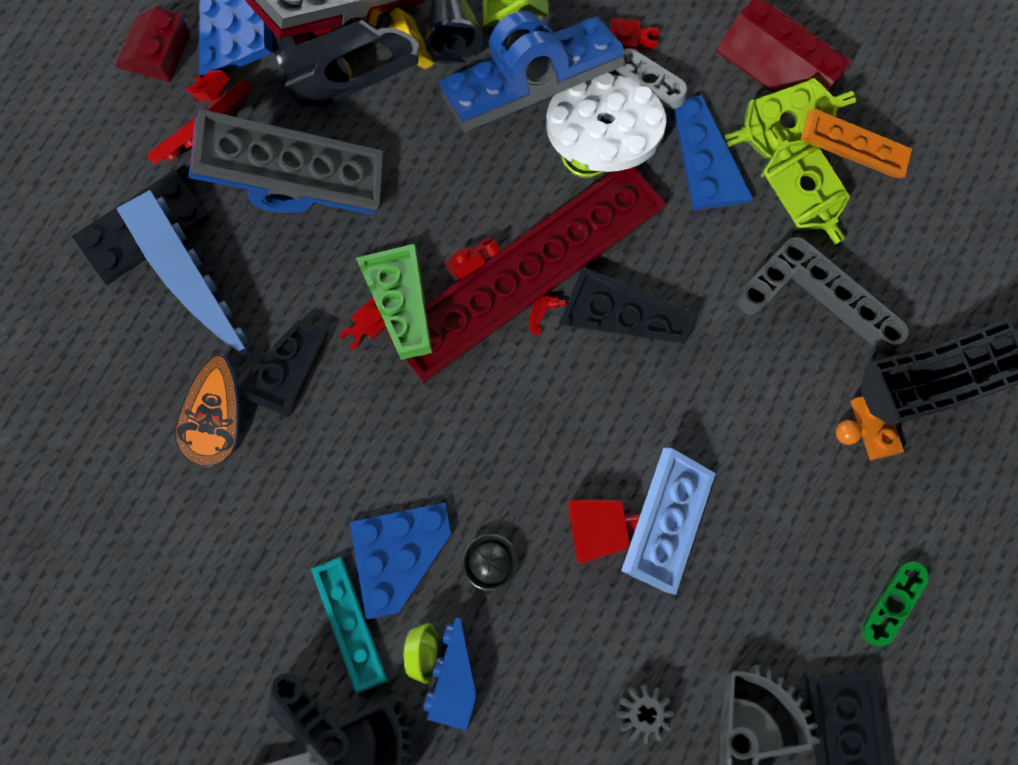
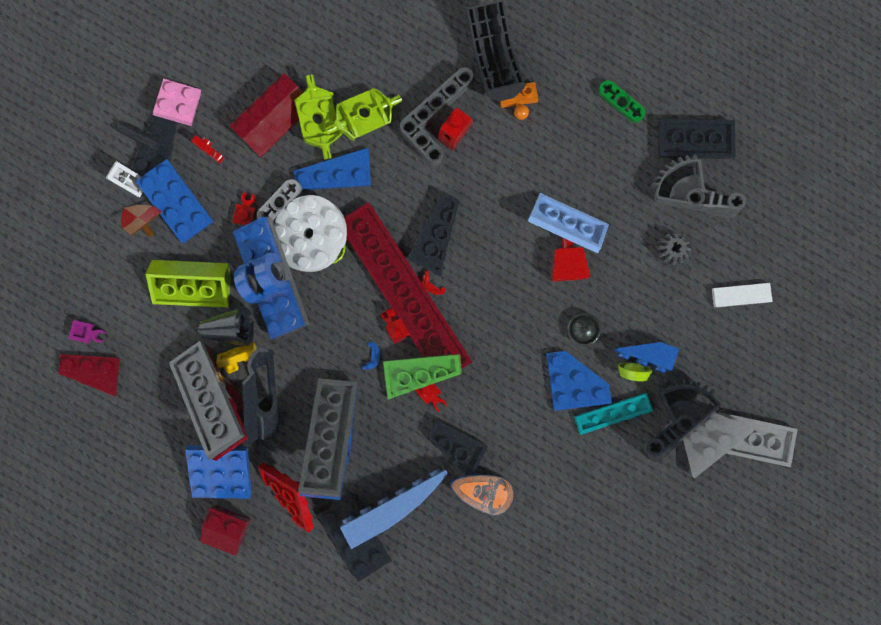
camera: 90 degrees left, 10 degrees up
(209, 87) = (262, 491): red plate -> none
(422, 236) = (375, 358): none -> blue piece
(805, 324) = (455, 128): none -> red torso
(856, 143) = (340, 79): orange plate -> none

